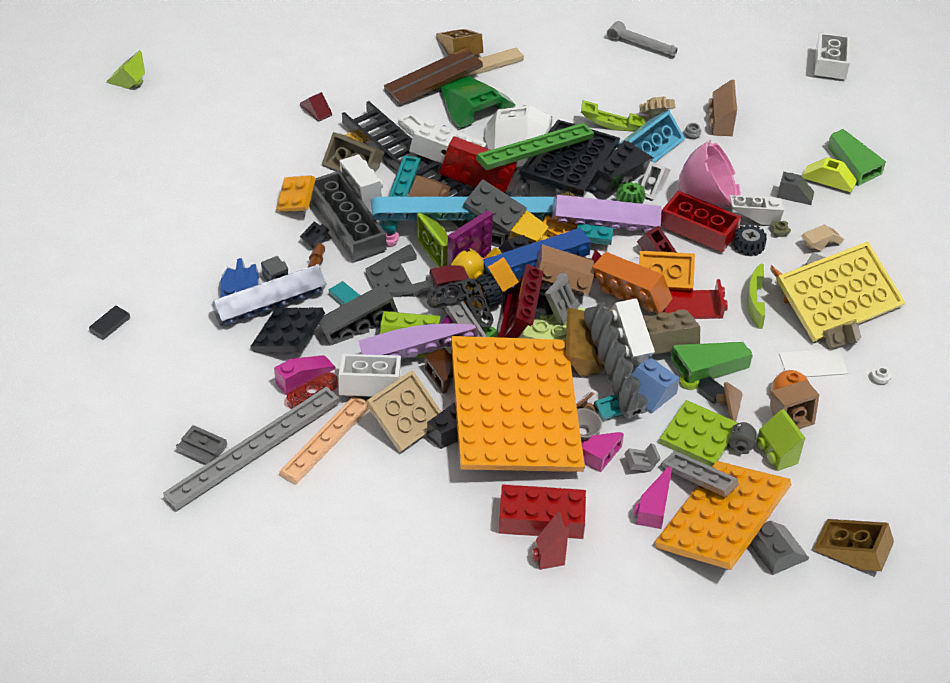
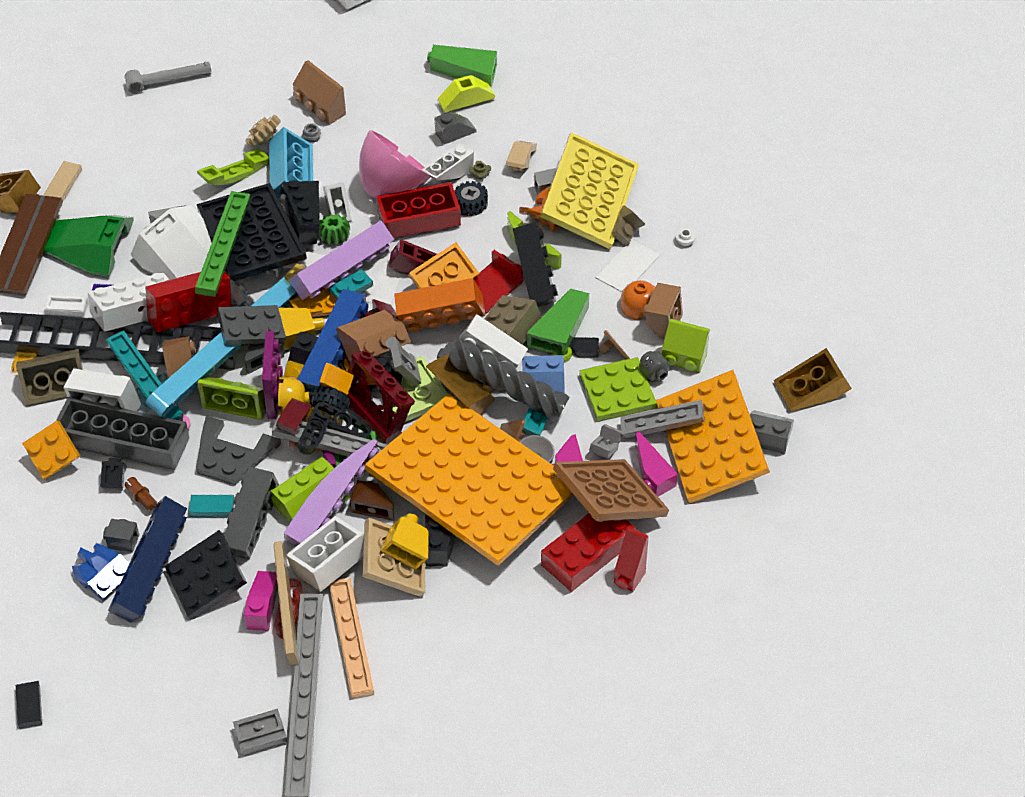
camera: 45 degrees left, 5 degrees up
(305, 383) = (285, 603): none -> tan tile
(421, 404) = (407, 541): none -> yellow torso
(597, 485) = (610, 489): none -> medium nougat plate
(734, 305) = (534, 264): none -> black wedge

